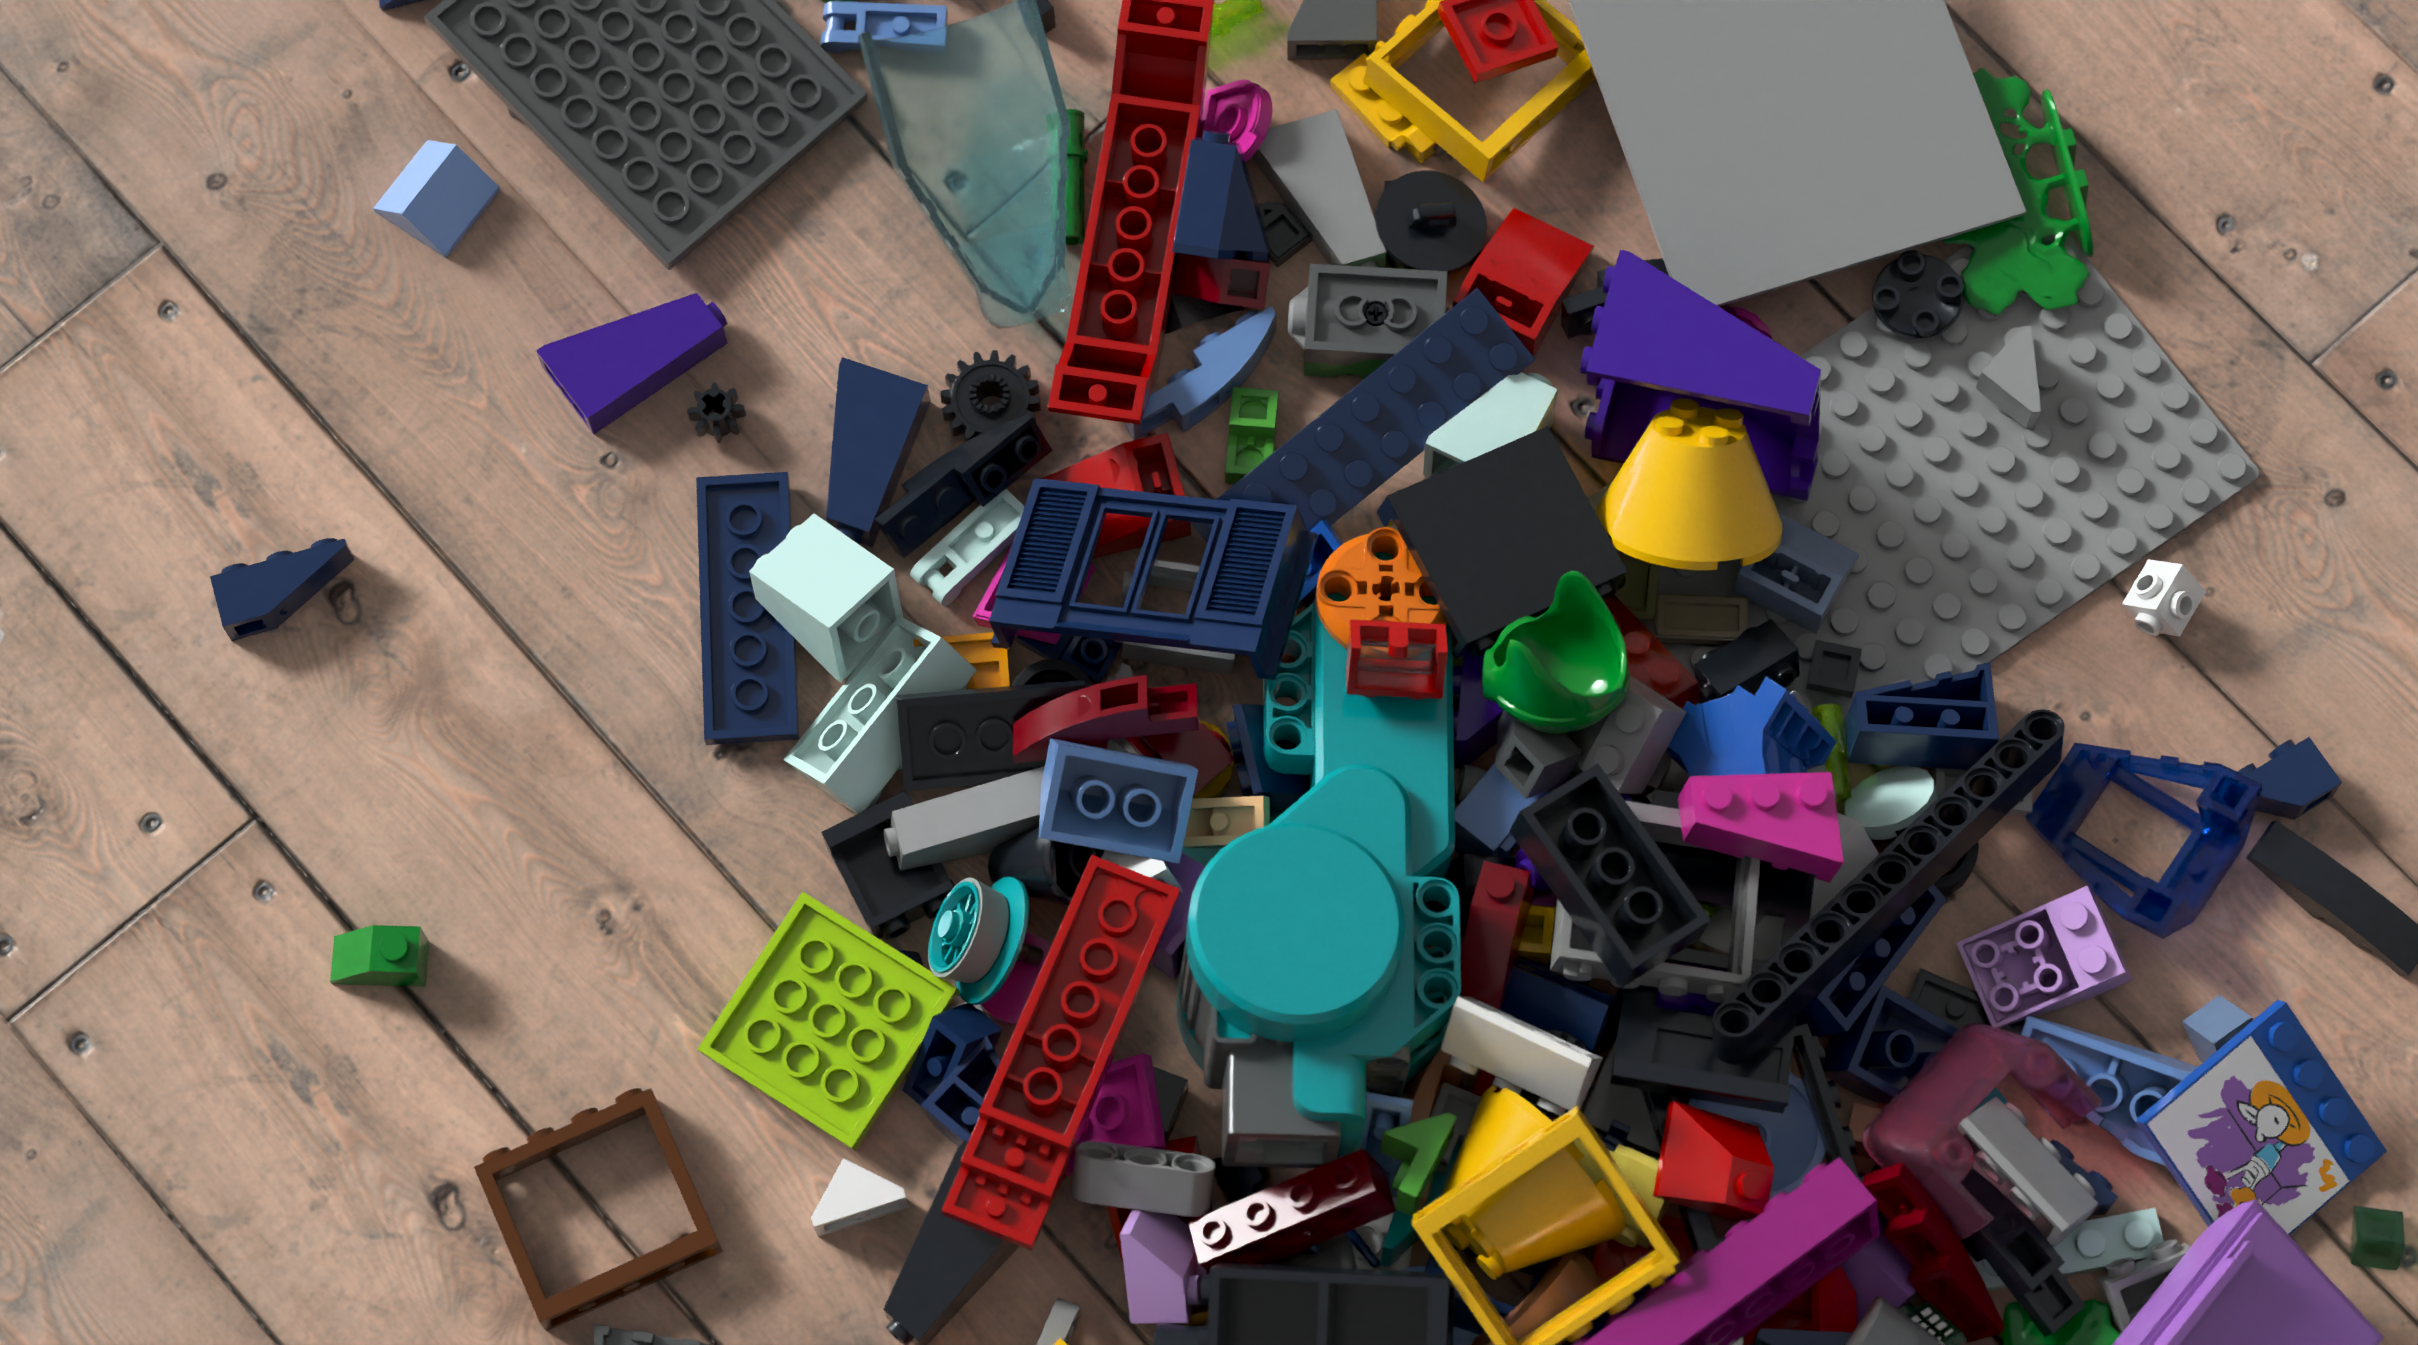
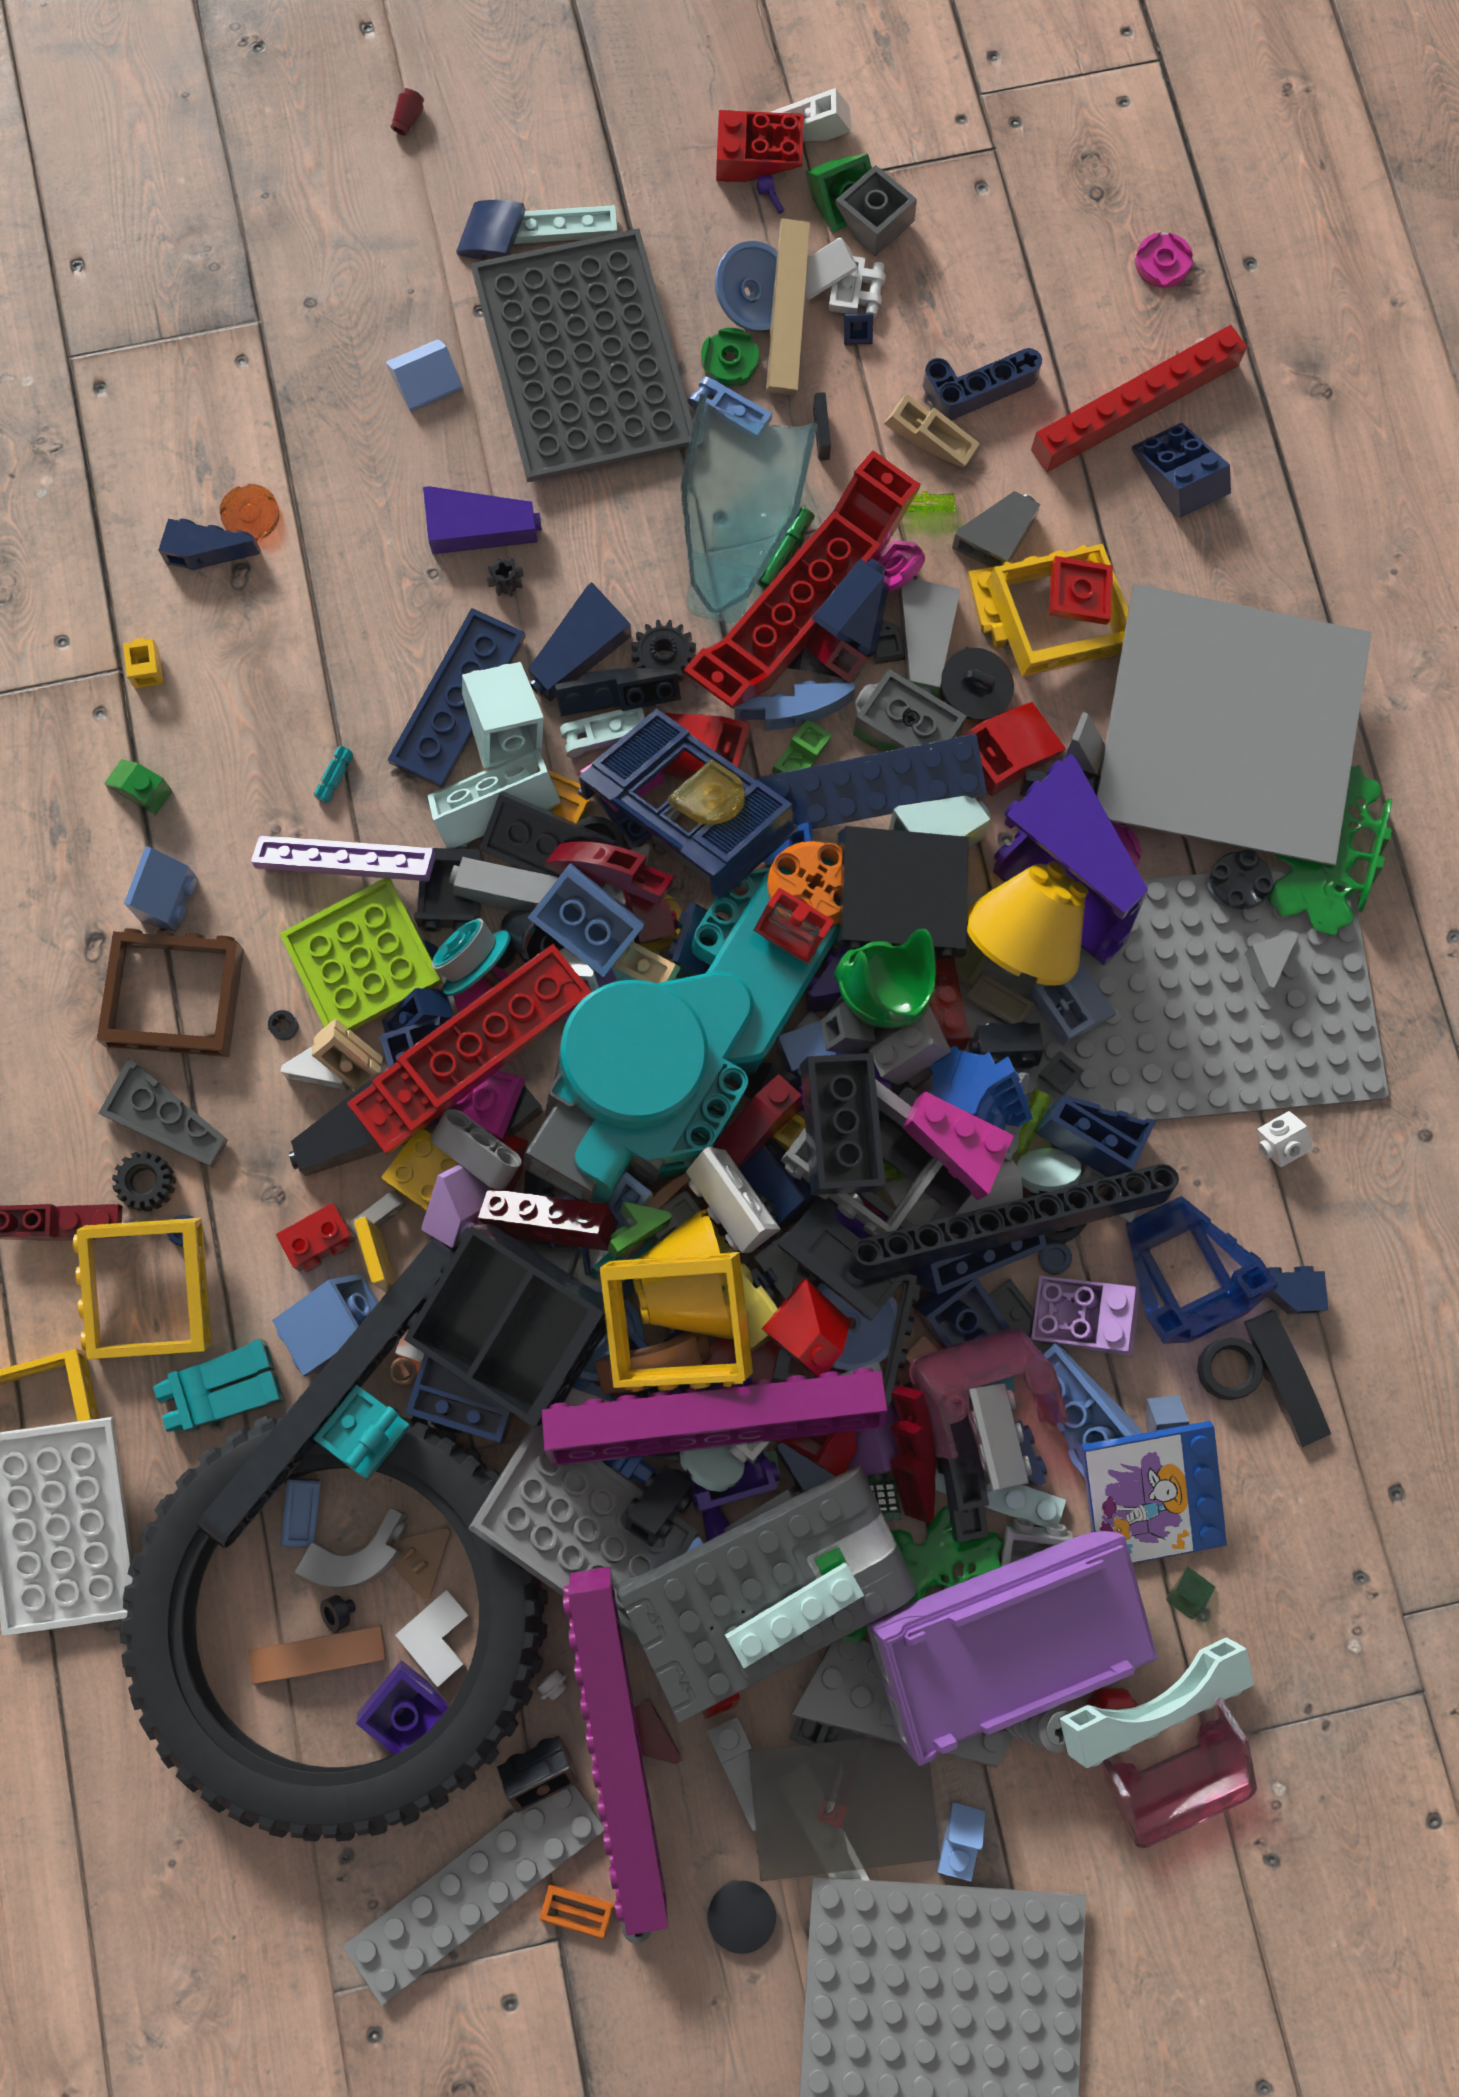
camera: 25 degrees right, 5 degrees up
(302, 802) = (139, 672): none -> yellow brick
(307, 507) = (250, 510): none -> clear orange tile
(506, 1078) = (160, 890): none -> medium blue slope
(639, 800) = (333, 774): none -> teal axle
(727, 901) = (344, 858): none -> plate
(766, 1181) = (289, 1033): none -> black bush
(892, 1156) = (346, 1055): none -> tan brick
(1082, 1254) = (417, 1168): none -> yellow bracket
(1183, 551) = (710, 795): none -> clear yellow tile
(1619, 228) = (1086, 745): none -> light grey slope
(1962, 911) = (1055, 1258): none -> dark blue tile
(2278, 895) = (1250, 1354): none -> black tyre

